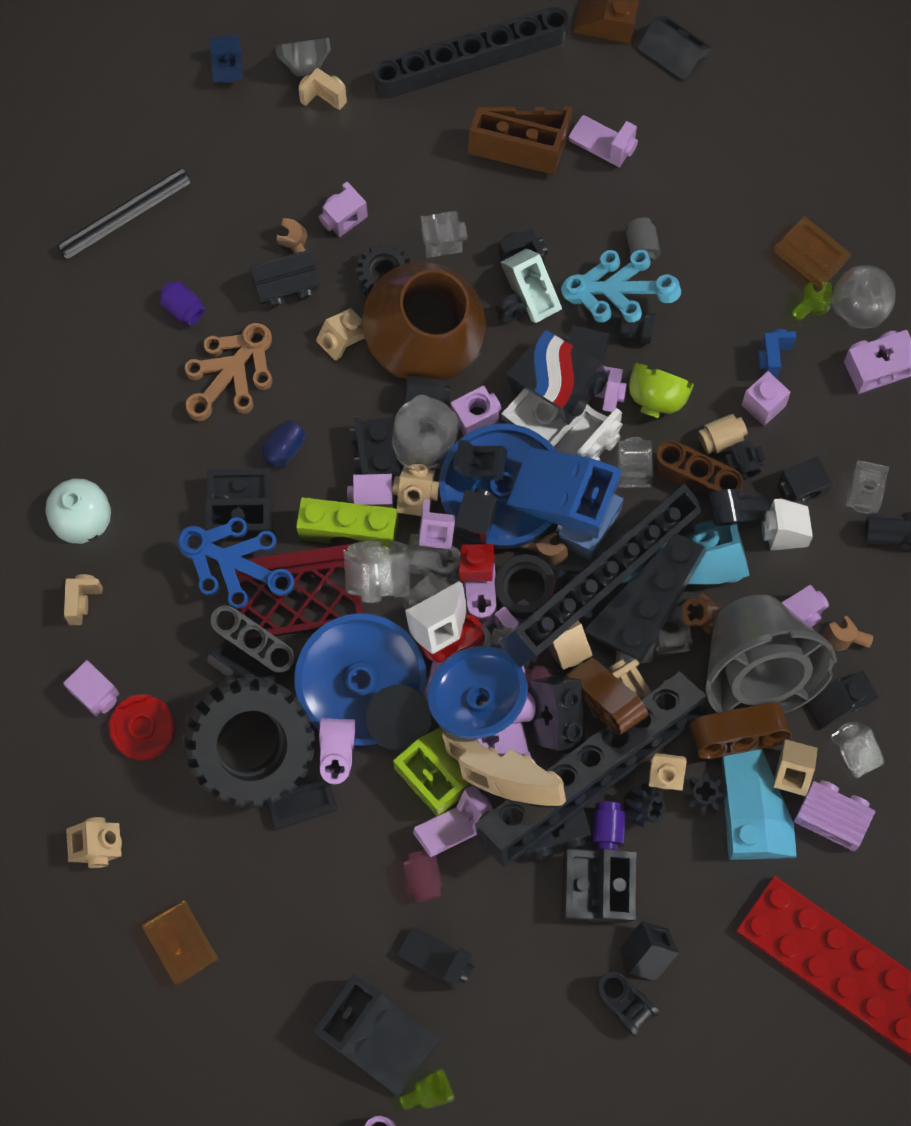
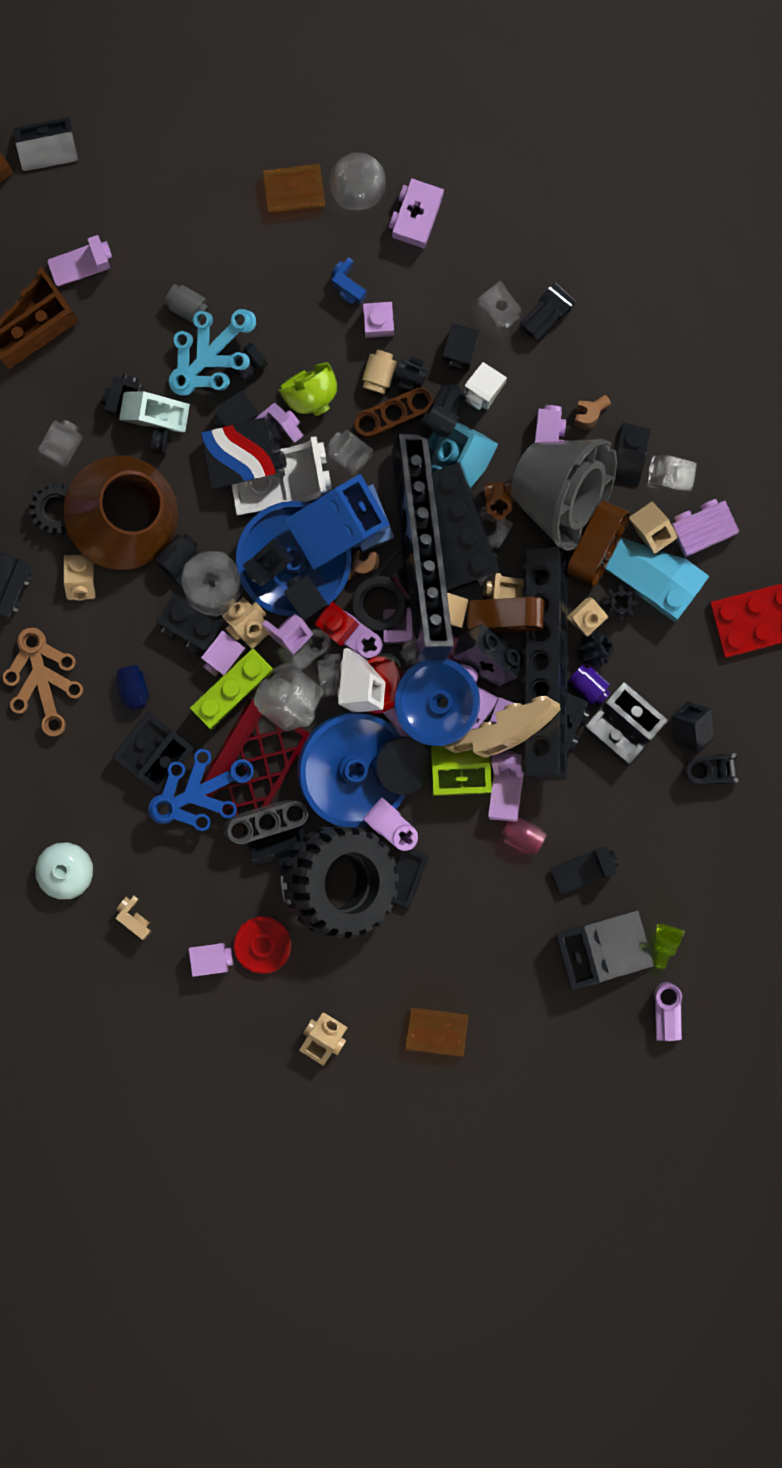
camera: 55 degrees left, 15 degrees up
(478, 398) = (224, 543): lavender brick -> none
(814, 302) = (333, 221): clear neon green piece -> none

